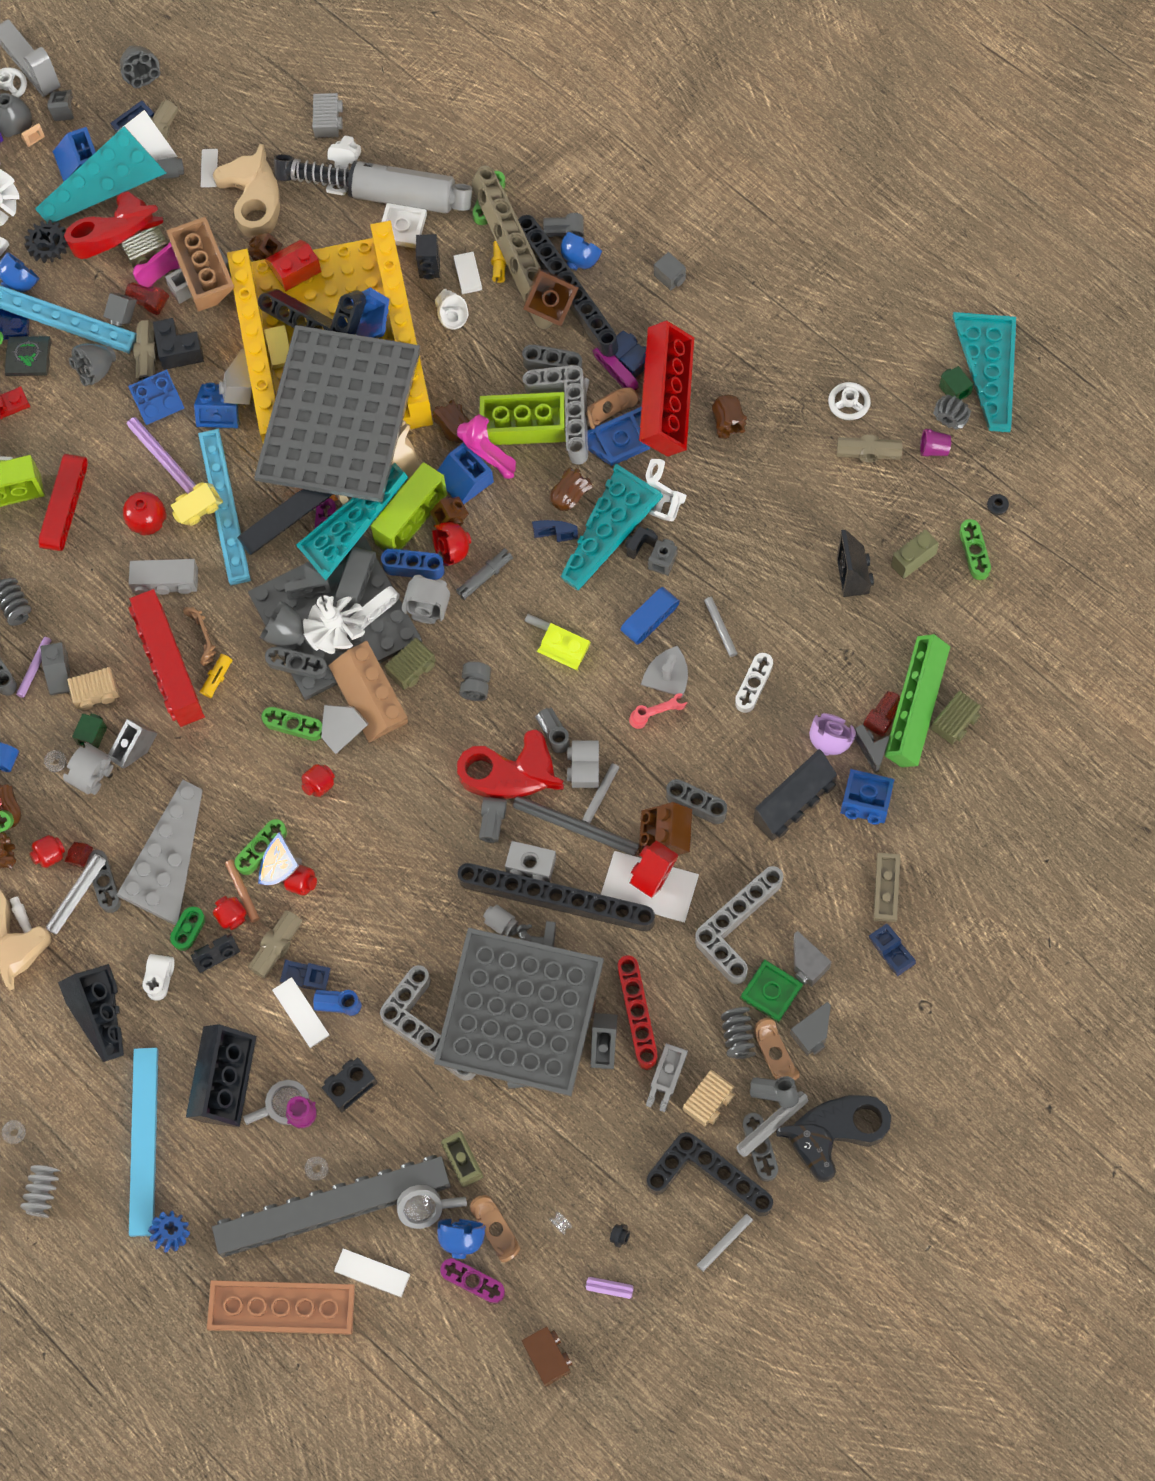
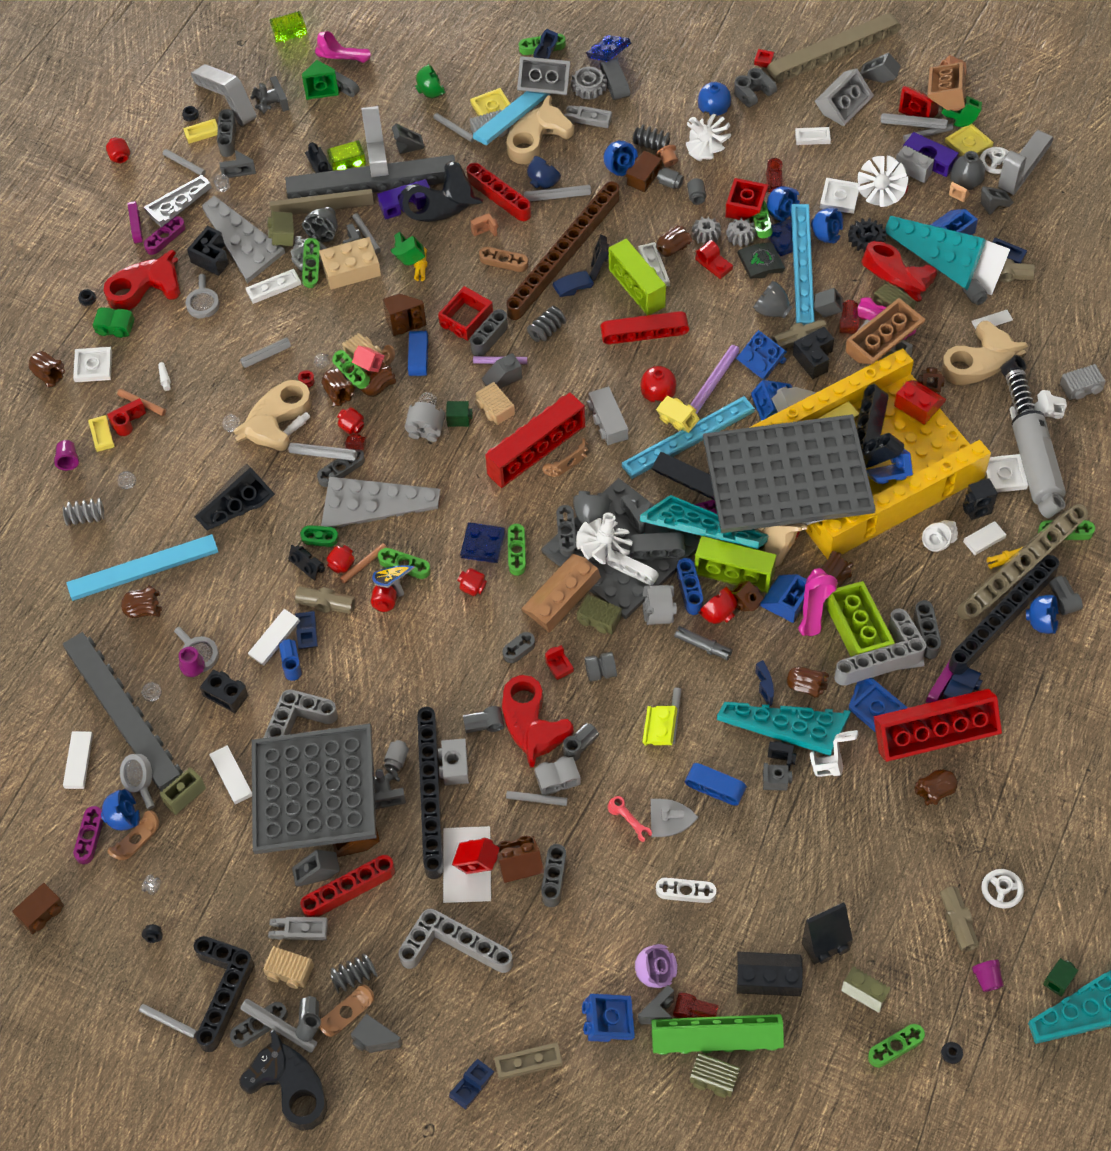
camera: 70 degrees right, 10 degrees down
(131, 743) = (457, 443): flat silver slope -> none
(139, 66) = (1056, 236): dark grey piece -> none
(158, 971) = (275, 529): white piece -> none
(161, 1235) = (66, 603): blue gear -> none
(197, 1151) = (141, 603): none -> reddish brown piece
(209, 688) = (524, 480): yellow pin -> none
(221, 1076) = (206, 600): black slope -> none
(268, 756) = (482, 542): none -> clear blue plate
(281, 1307) = (35, 705): nougat plate -> none
(341, 726) = (524, 582): light grey slope -> none
(411, 760) = (519, 648): none -> dark grey beam
(453, 722) = (558, 662): none -> red bracket
(455, 1104) = (231, 774): none -> white tile
(550, 297) = (981, 599): reddish brown slope -> none
(576, 825) = (500, 787): dark grey axle -> none
(609, 1287) = (107, 936): lavender axle -> none
(619, 400) = (888, 677): medium nougat piece -> none
(670, 271) = (1062, 694): dark grey brick -> none
(720, 627) = (729, 846): light grey bar -> none
(771, 991) = (402, 992): green tile -> none
(795, 795) = (585, 953): black slope -> none
(808, 961) = (436, 1012): flat silver slope -> none
(867, 634) = (769, 974): none -> black slope
(952, 412) = (1027, 980): dark grey gear -> none

